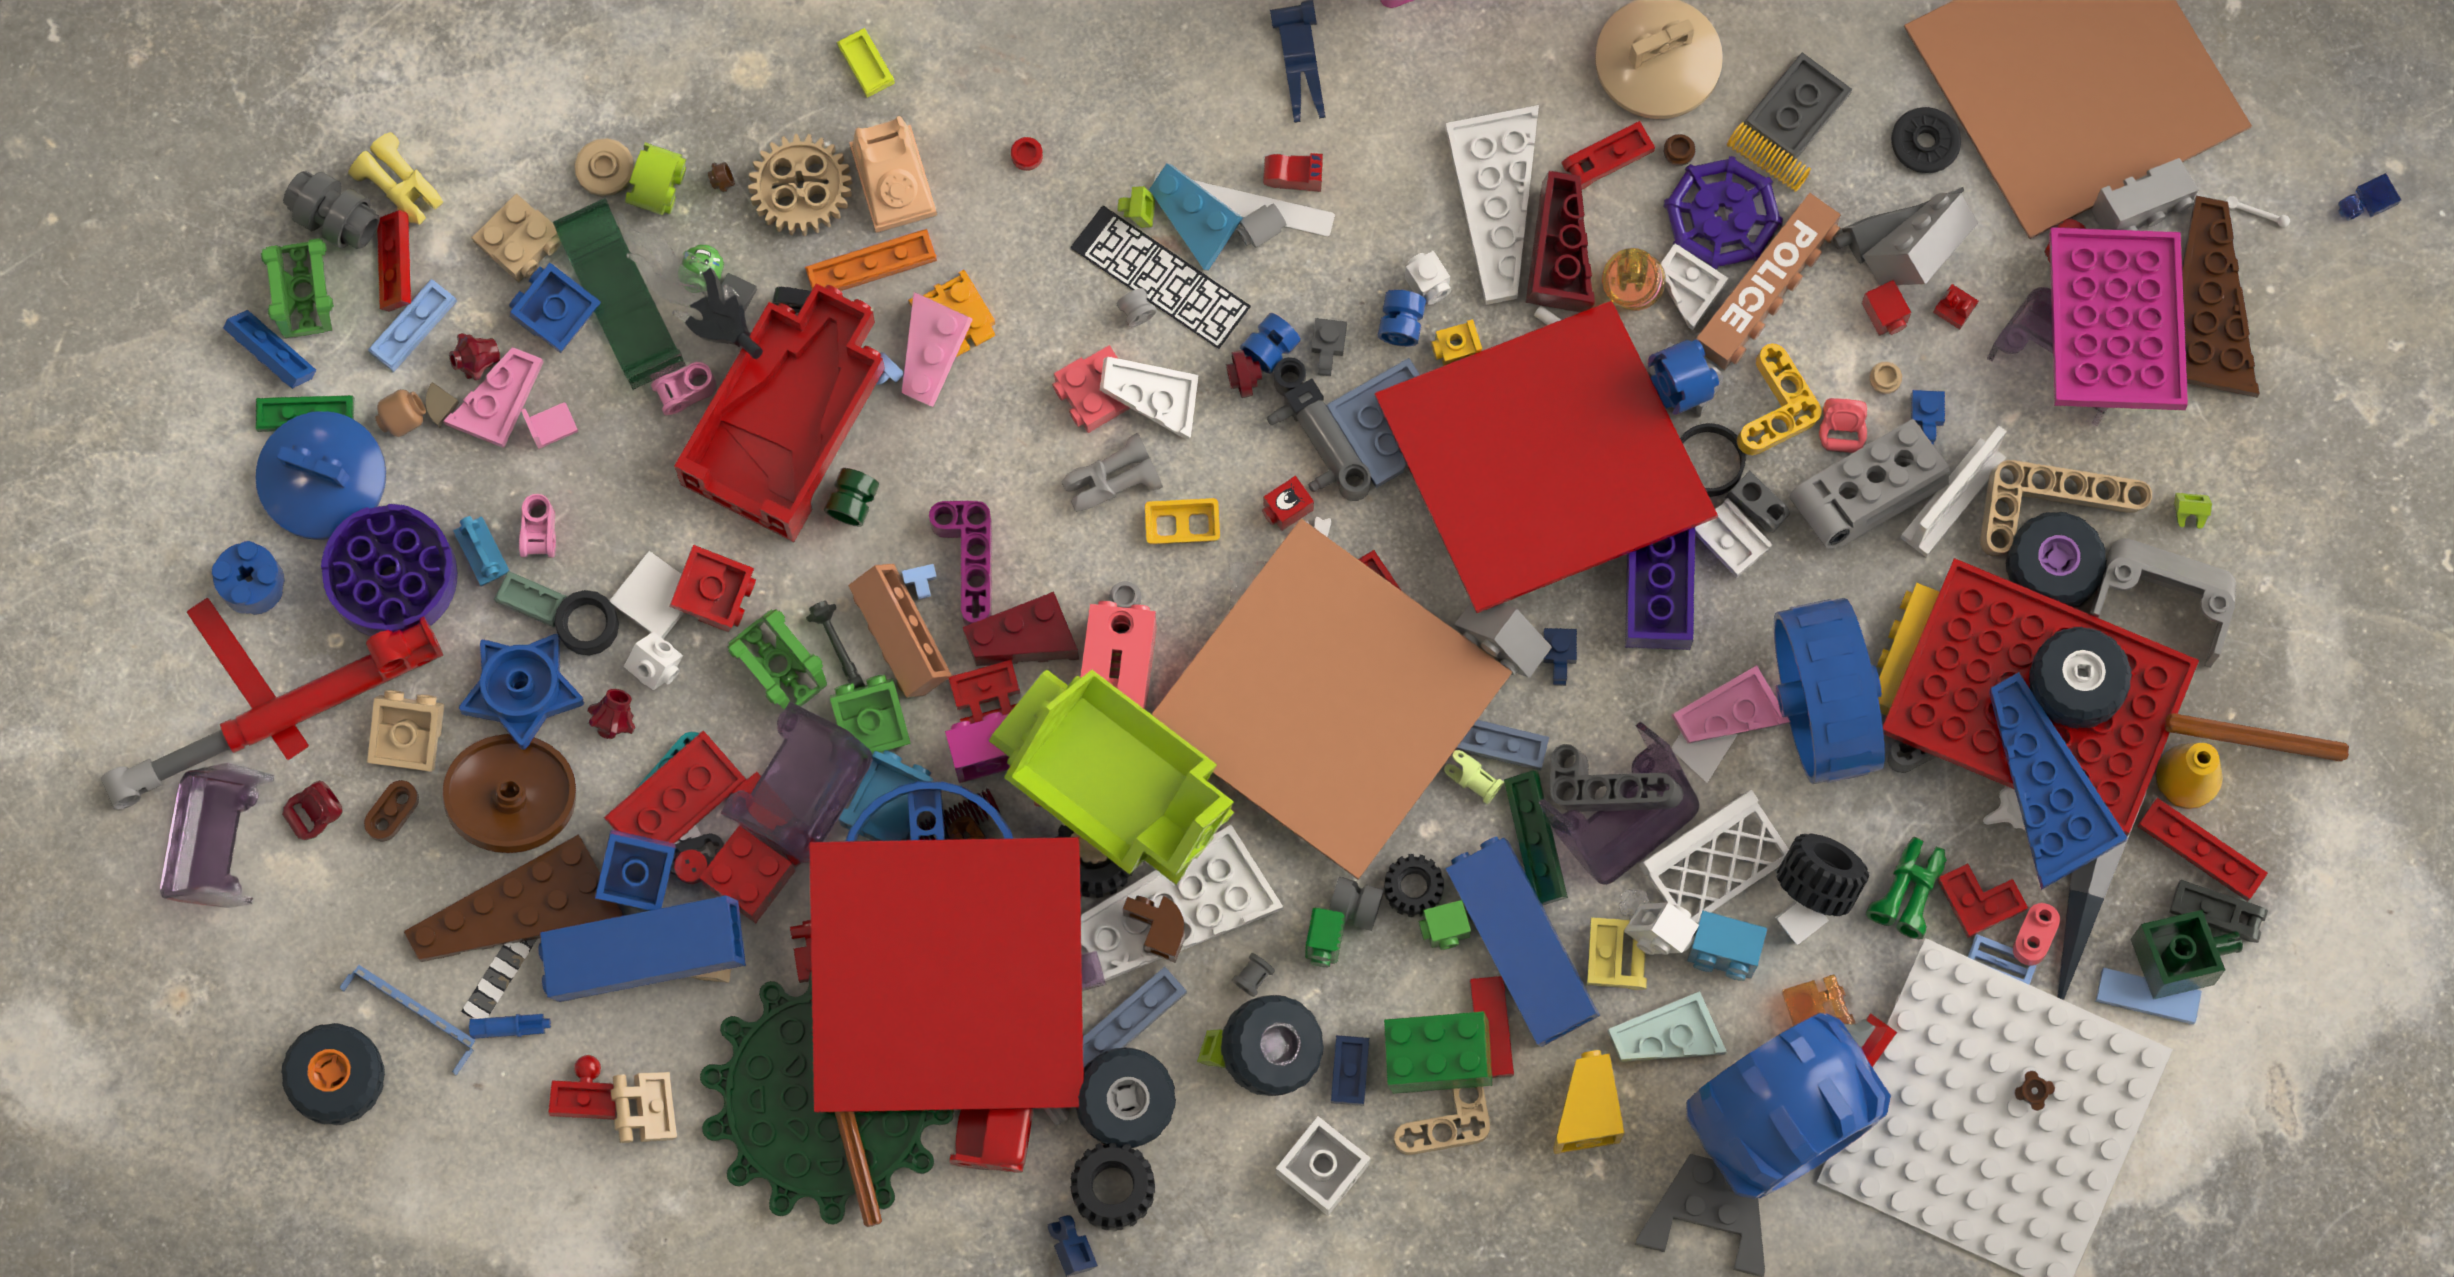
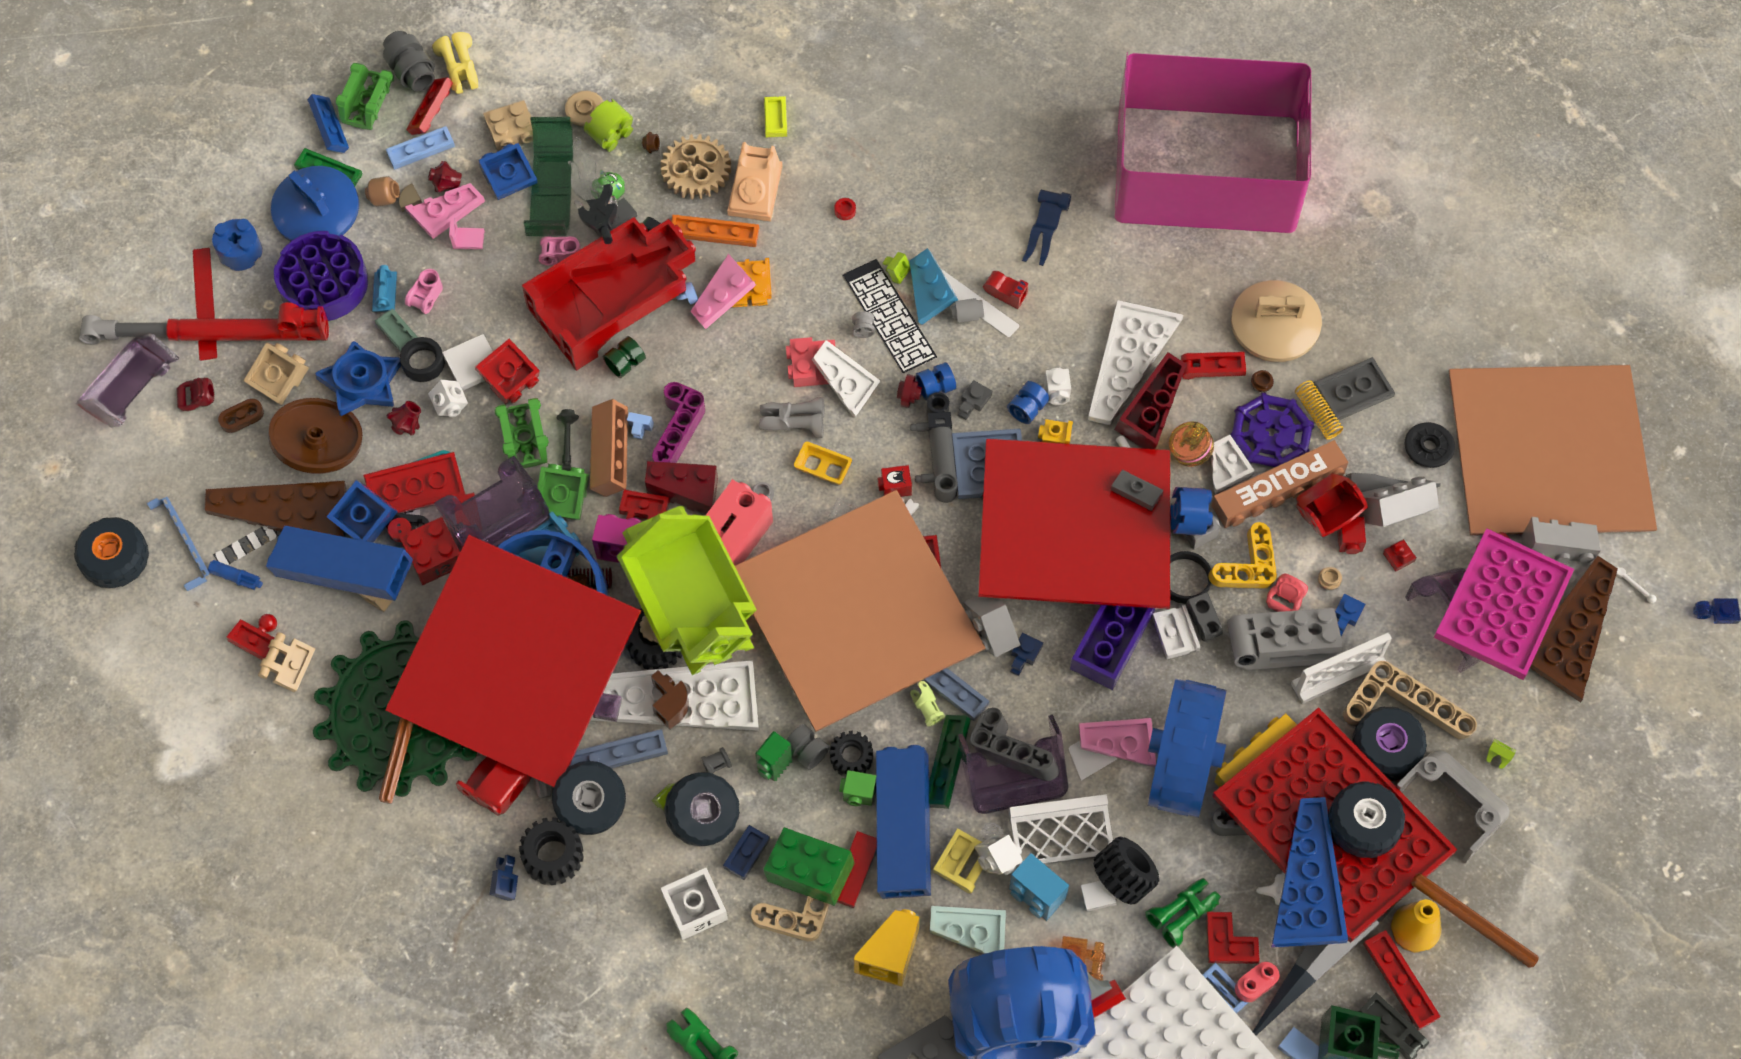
camera: 25 degrees right, 10 degrees down
(1599, 376) = (1137, 490): none -> dark grey plate
(1846, 282) = (1331, 504): none -> red piece

